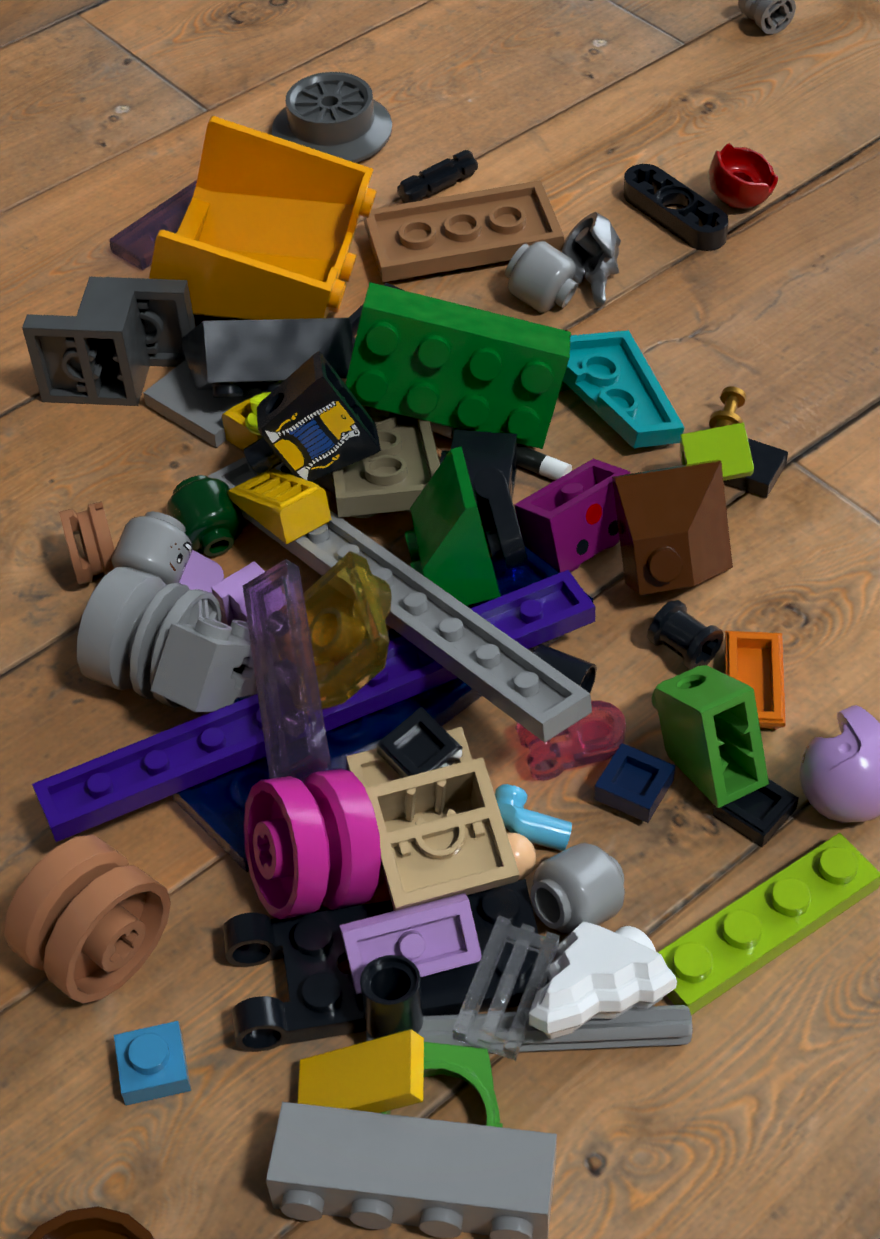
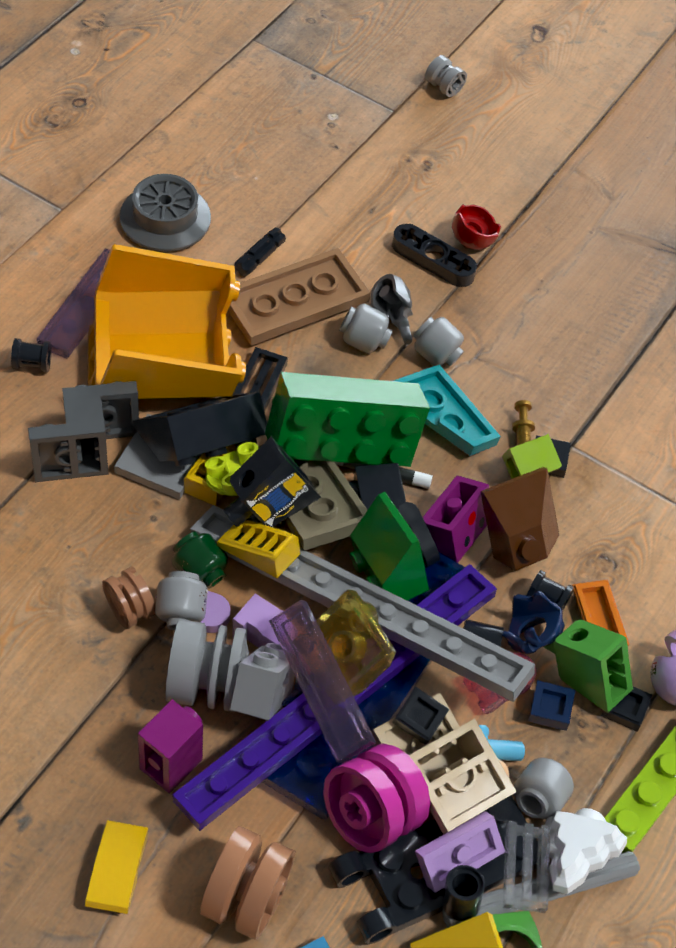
camera: 25 degrees left, 5 degrees up
(59, 718) = (171, 745): none -> magenta brick
(93, 255) = (31, 355): none -> black bush
(638, 303) = (439, 342): none -> light grey head
(645, 661) = (529, 612): none -> dark blue piece

